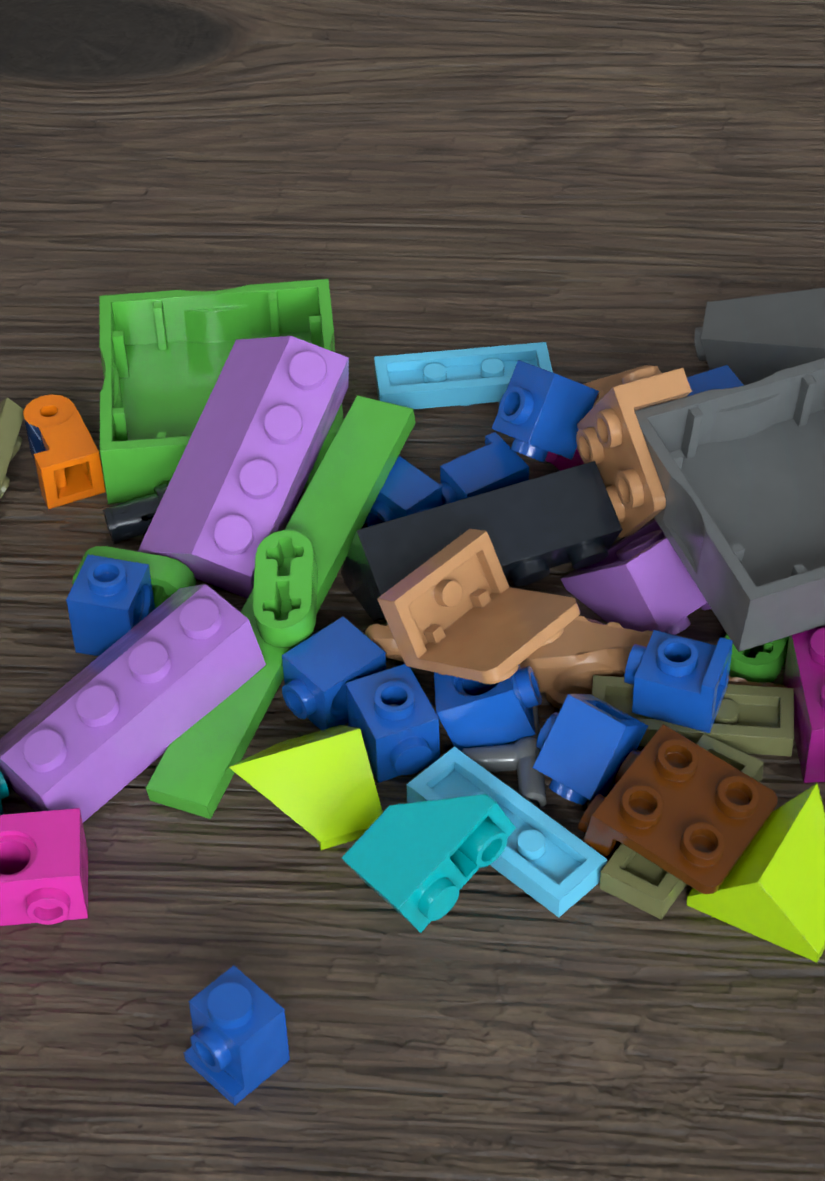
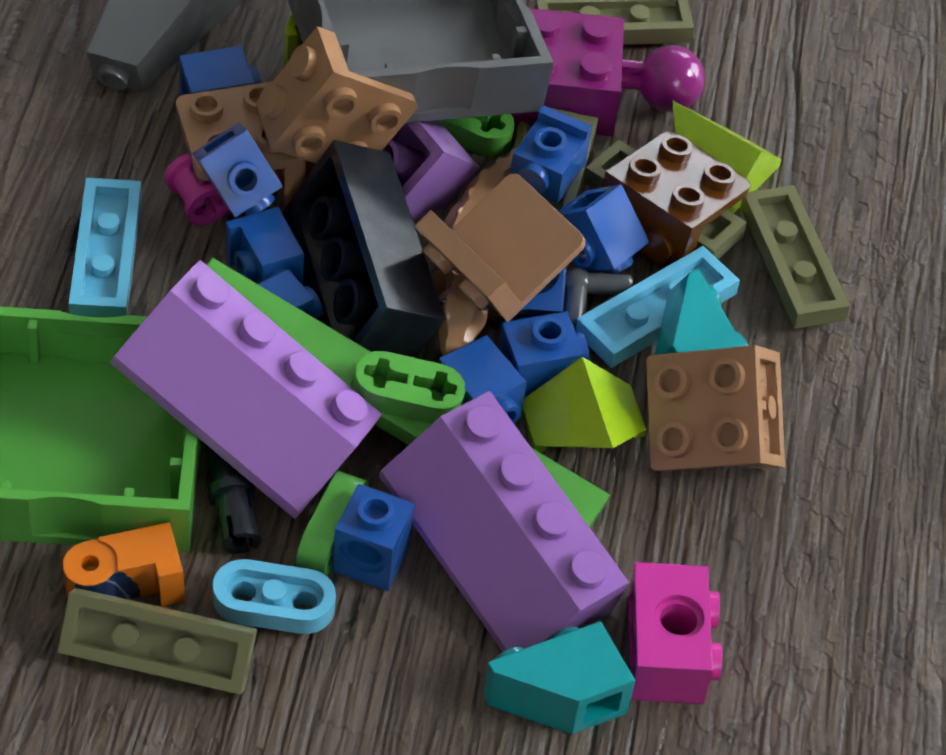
camera: 90 degrees left, 5 degrees up
(41, 554) = (274, 595): none -> medium azure plate
(236, 1035) = (850, 491): blue brick -> none
(322, 889) = (715, 409): none -> medium nougat bracket
(630, 967) = (794, 257): none -> olive plate

